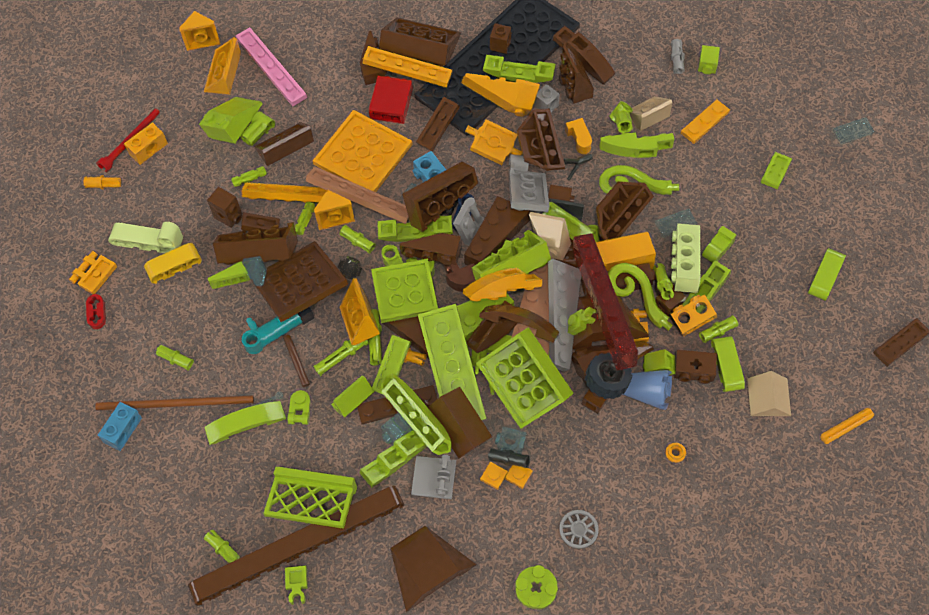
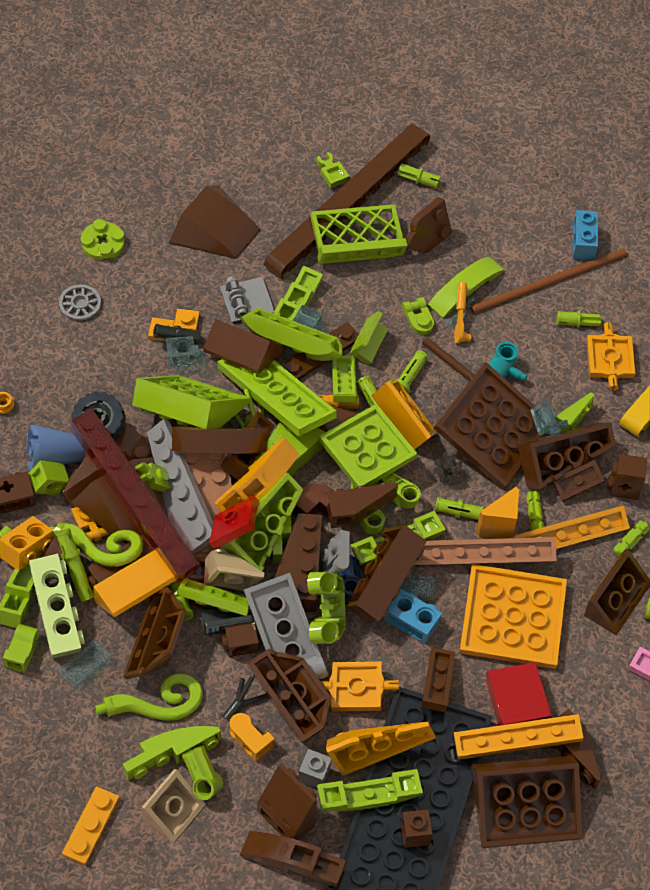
camera: 150 degrees right, 5 degrees down
(171, 315) = (610, 356): none -> light orange plate
(236, 478) = (429, 227): none -> reddish brown plate
(275, 379) = (460, 335): none -> light orange piece
(492, 183) = (332, 623): none -> lime connector
(535, 253) = (234, 522): none -> red plate

